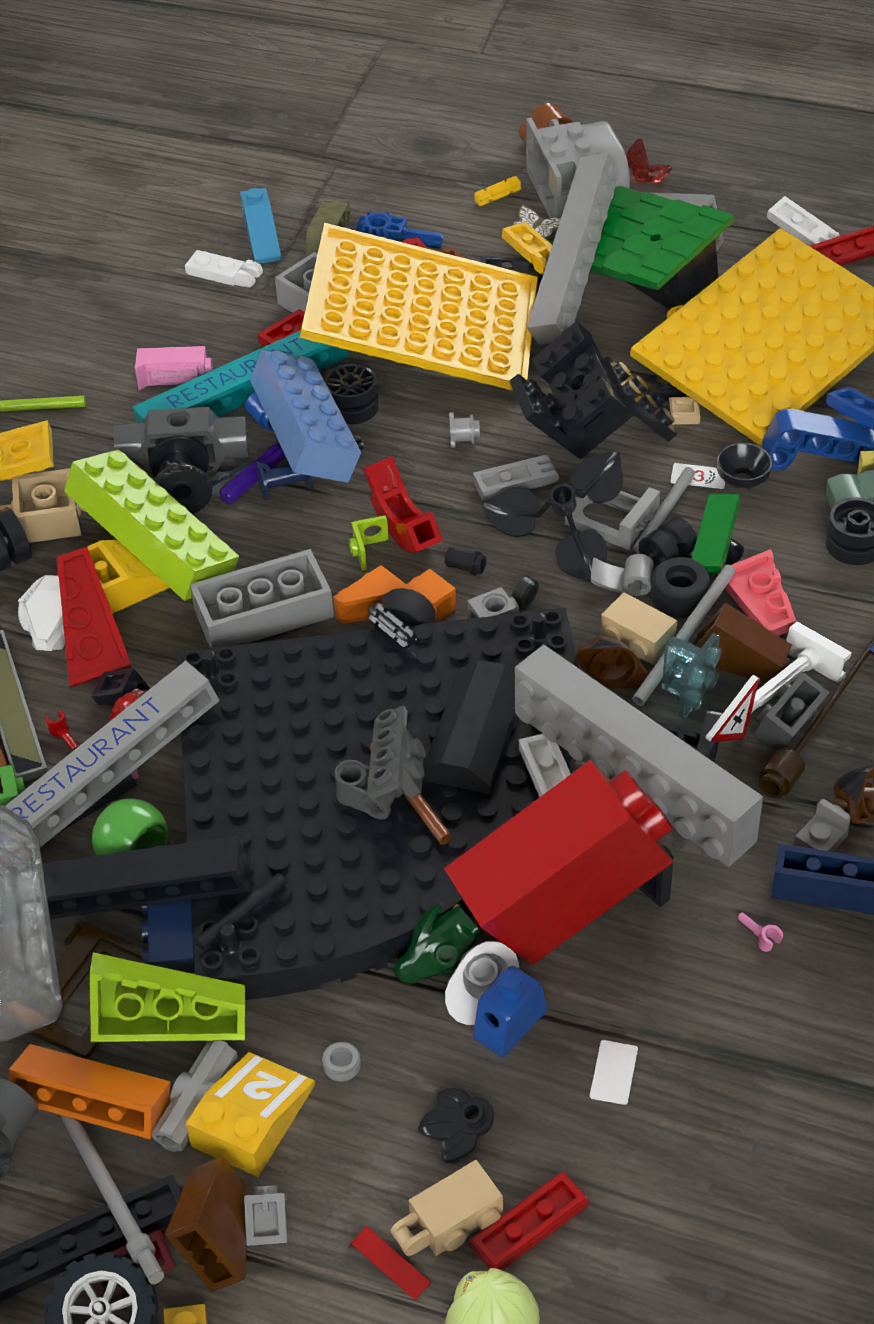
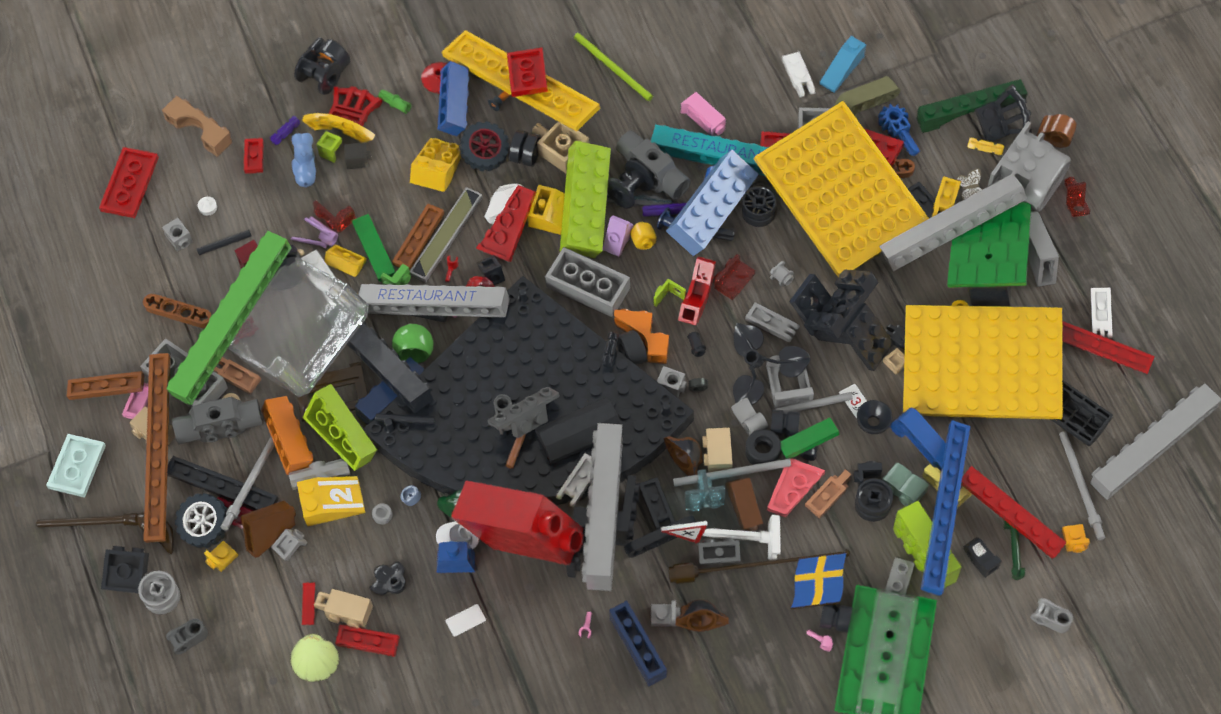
camera: 50 degrees right, 15 degrees up
(231, 526) = (617, 235): none -> lavender brick
(260, 514) = (643, 235): none -> yellow head
(352, 1003) = (410, 495): none -> sand blue tile
(417, 193) = (936, 114): none -> dark green arch
(417, 474) = (733, 277): none -> clear red bracket
(477, 160) = (992, 118): none -> black plate
(805, 569) = (828, 494): none -> nougat hinge
(809, 517) = (867, 470): none -> black bracket

